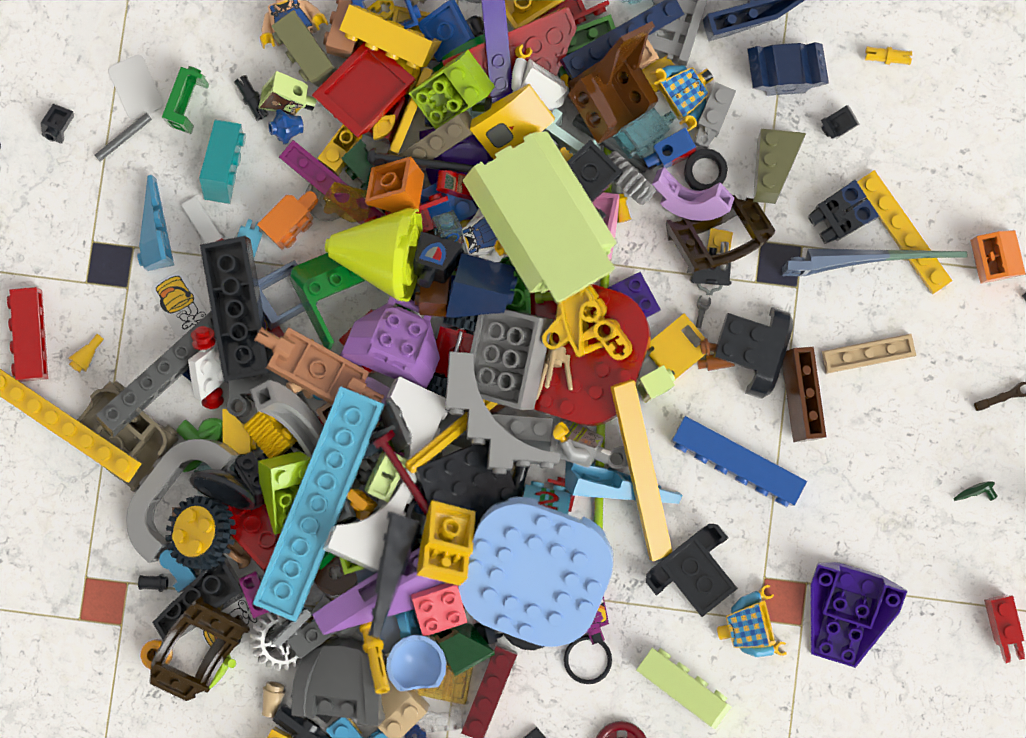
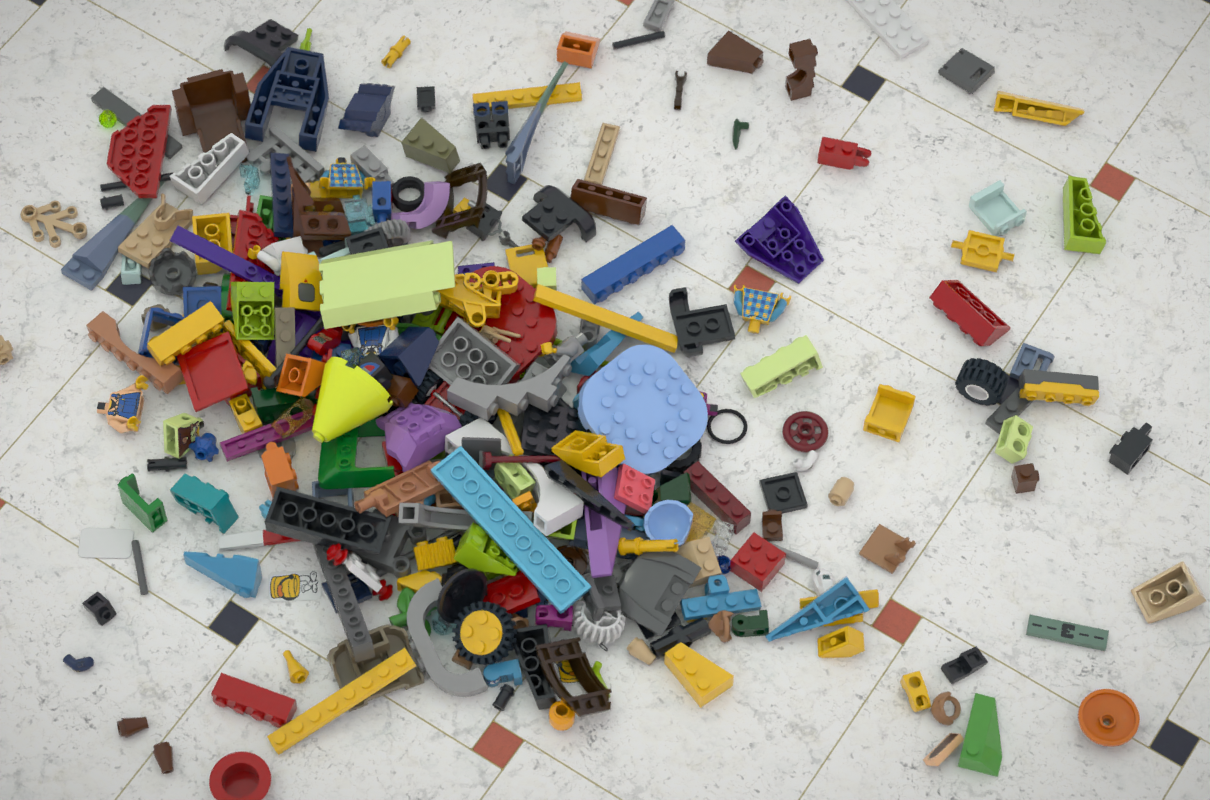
camera: 70 degrees left, 25 degrees down
(303, 49) = (156, 400): olive wedge -> none

